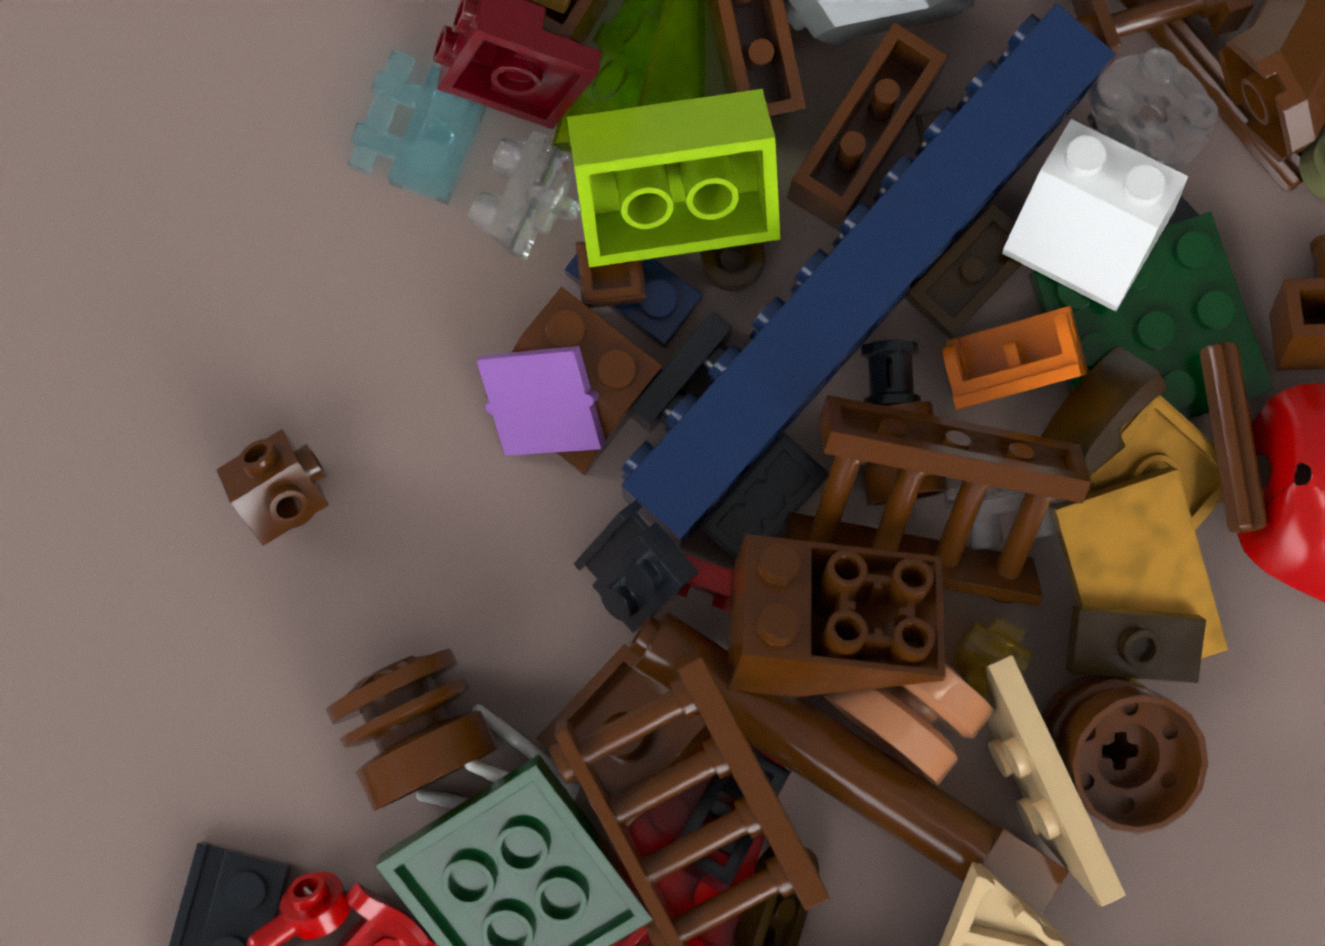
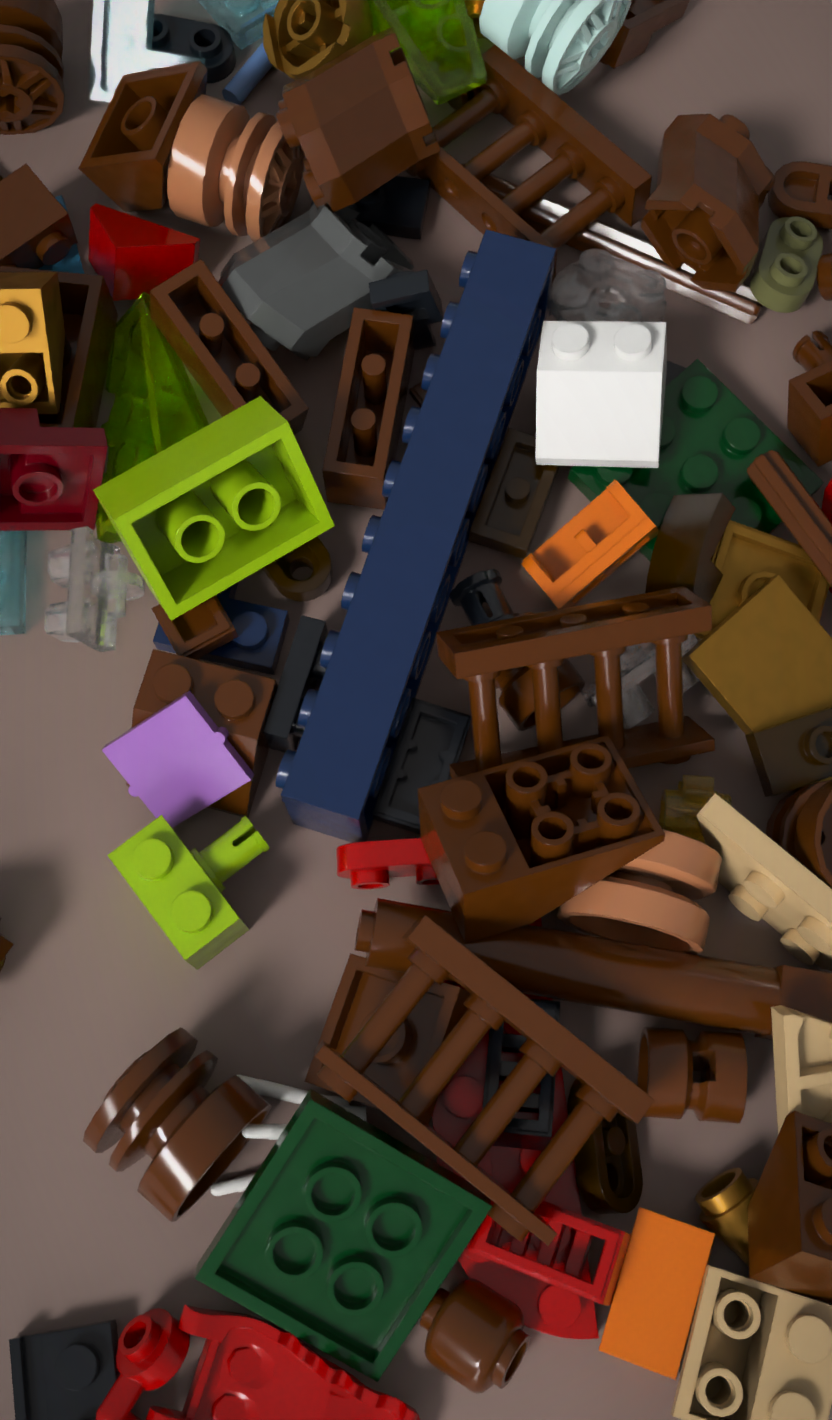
camera: 20 degrees left, 10 degrees down
(502, 519) = (186, 886): none -> lime brick
(635, 567) = (329, 872): black plate -> none
(857, 874) = (667, 1070): none -> reddish brown wheel
(954, 33) = (412, 295): none -> black plate

